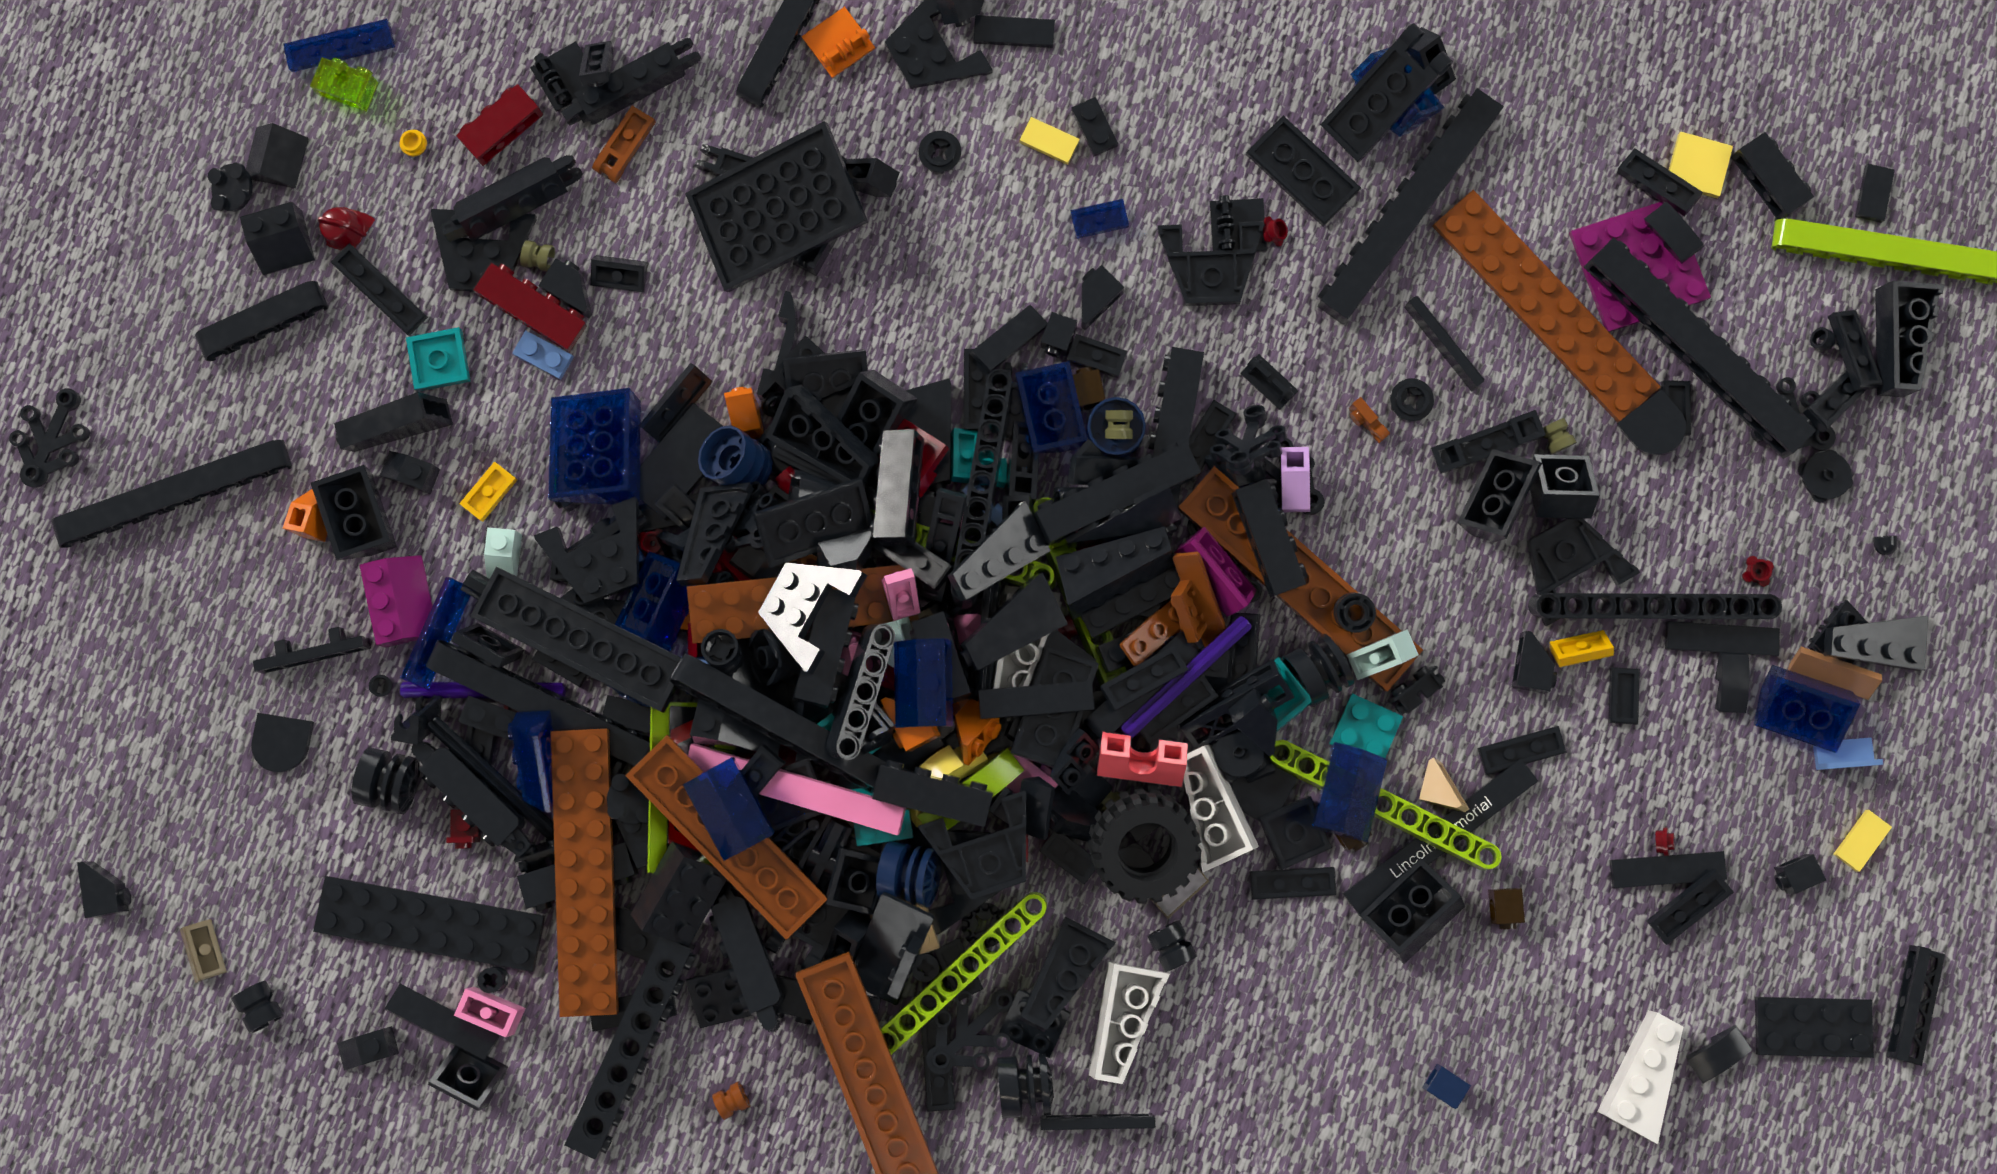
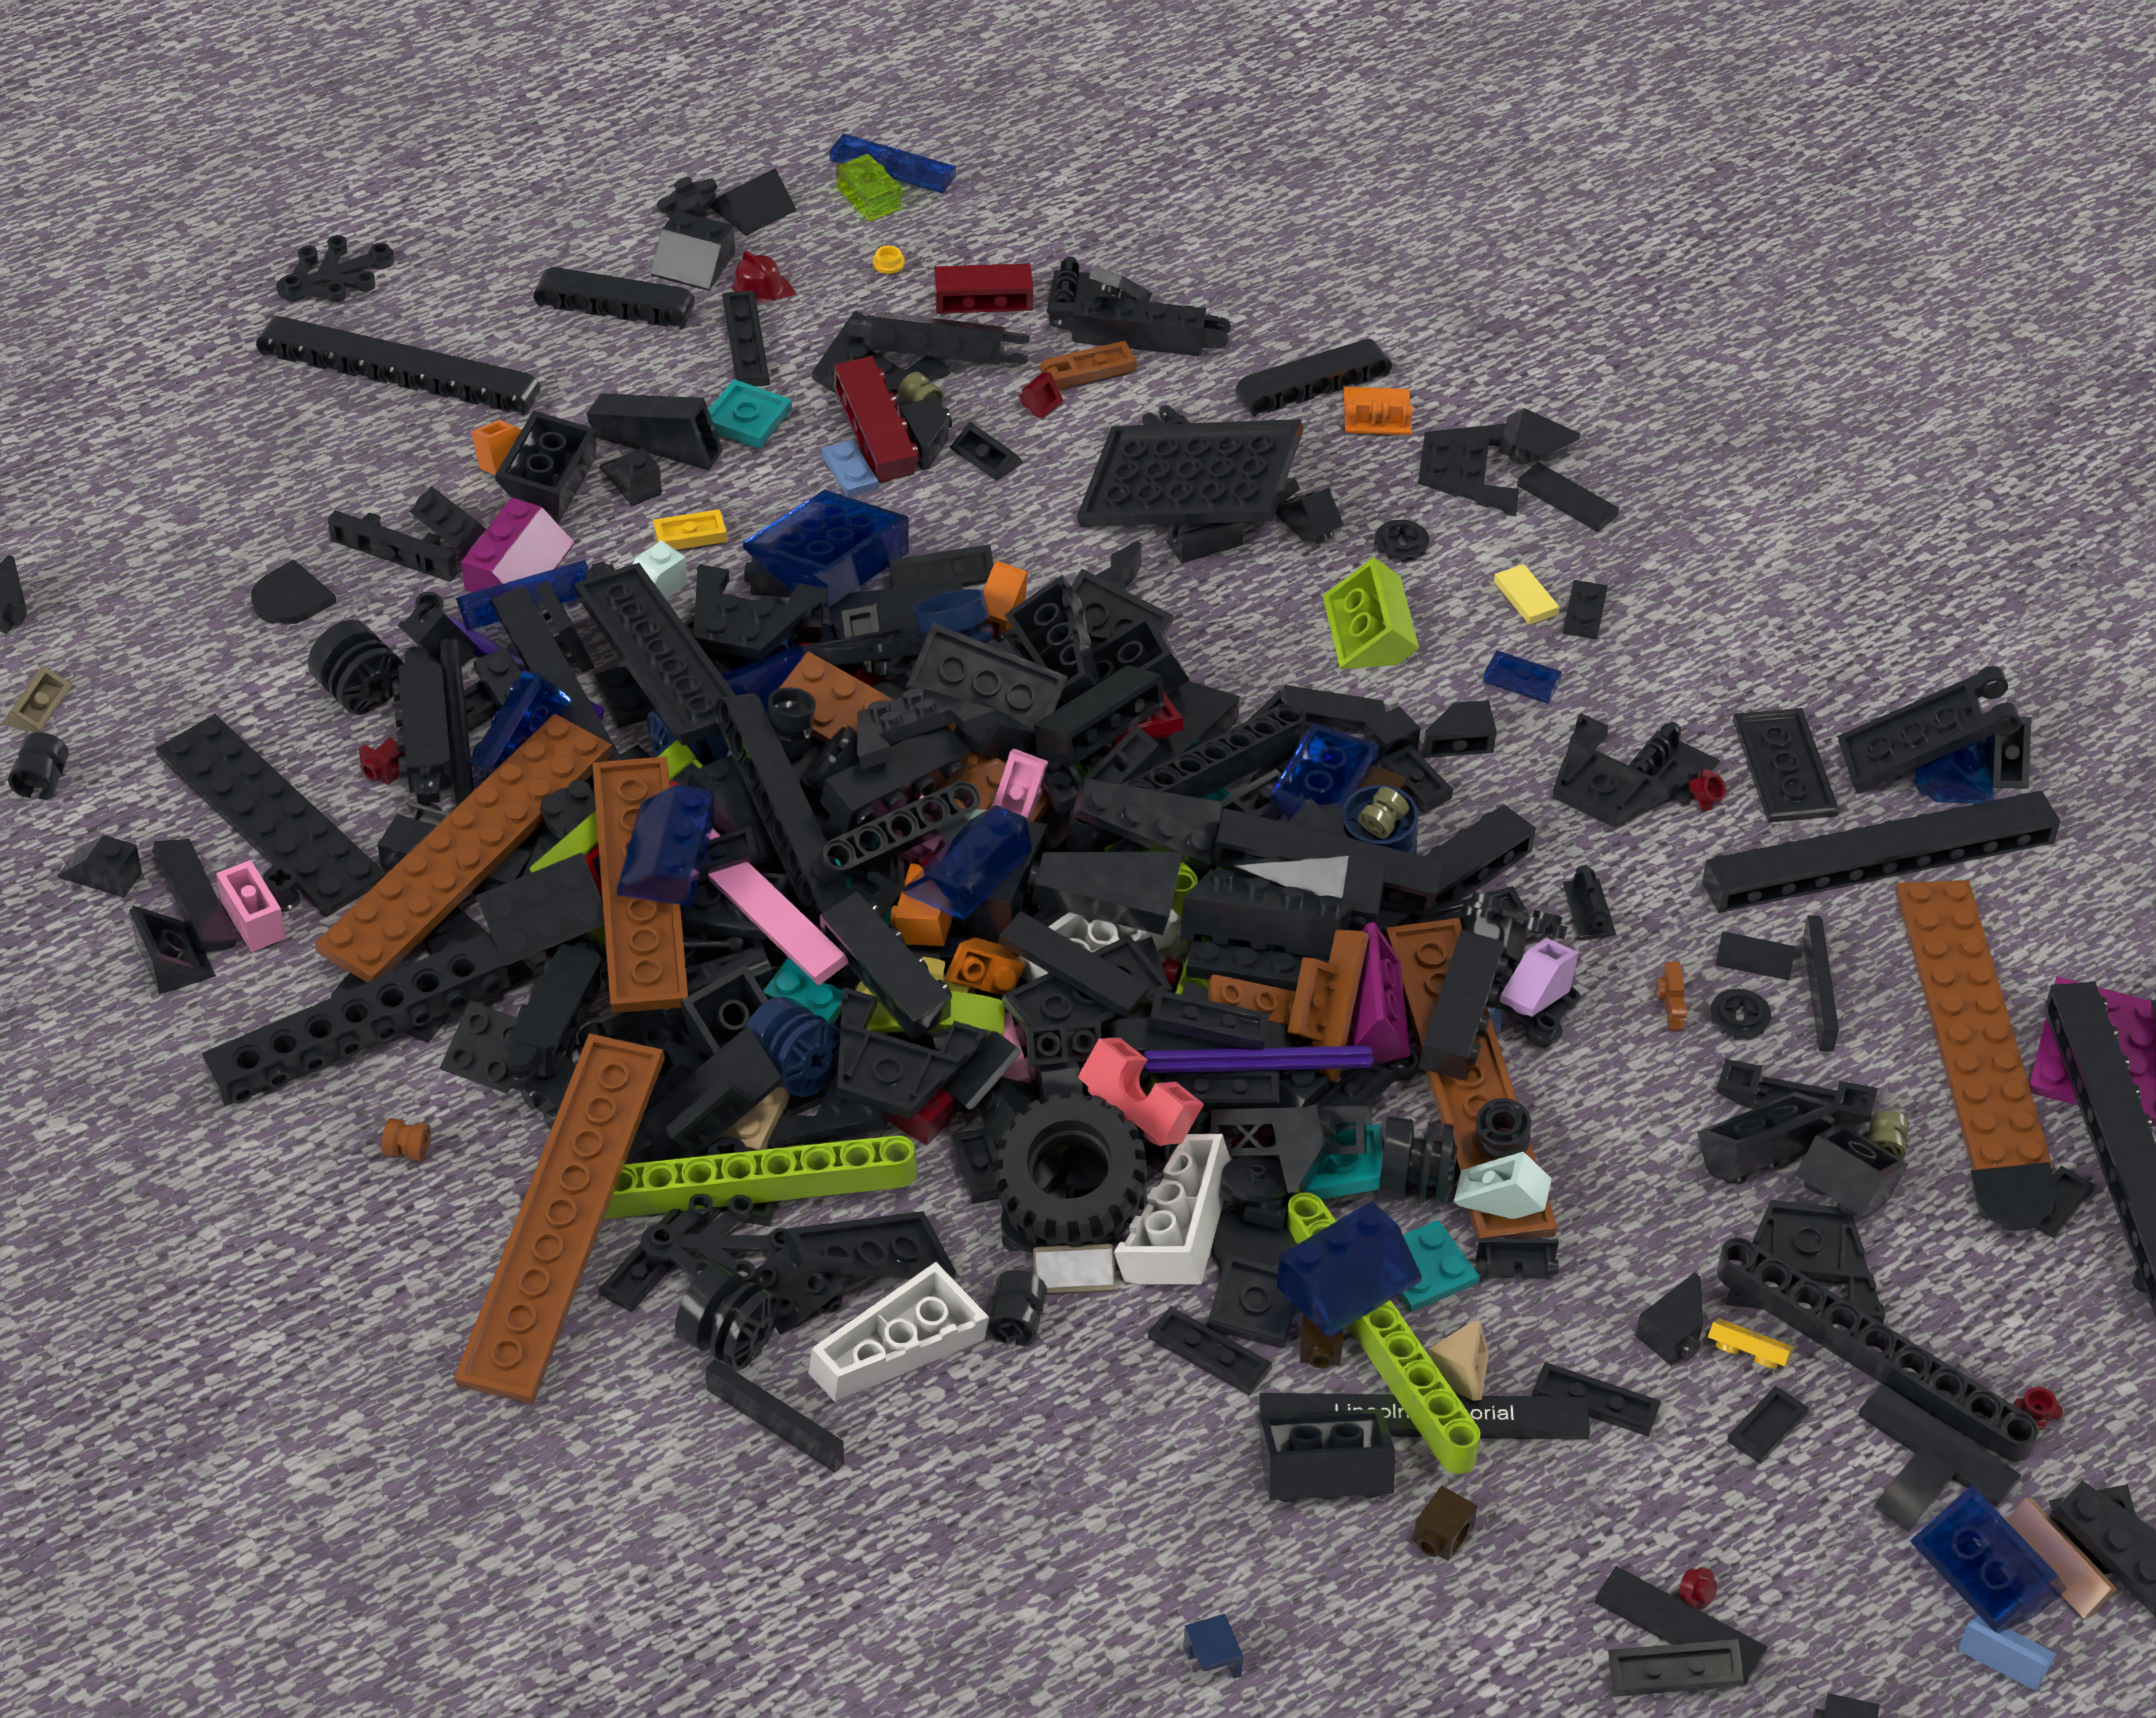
camera: 30 degrees right, 35 degrees down
(331, 610) = (447, 520): none -> black plate
(616, 197) = (1041, 395): none -> dark red tile
(973, 241) = (1370, 618): none -> lime slope
(1389, 345) = (1755, 955): none -> black tile

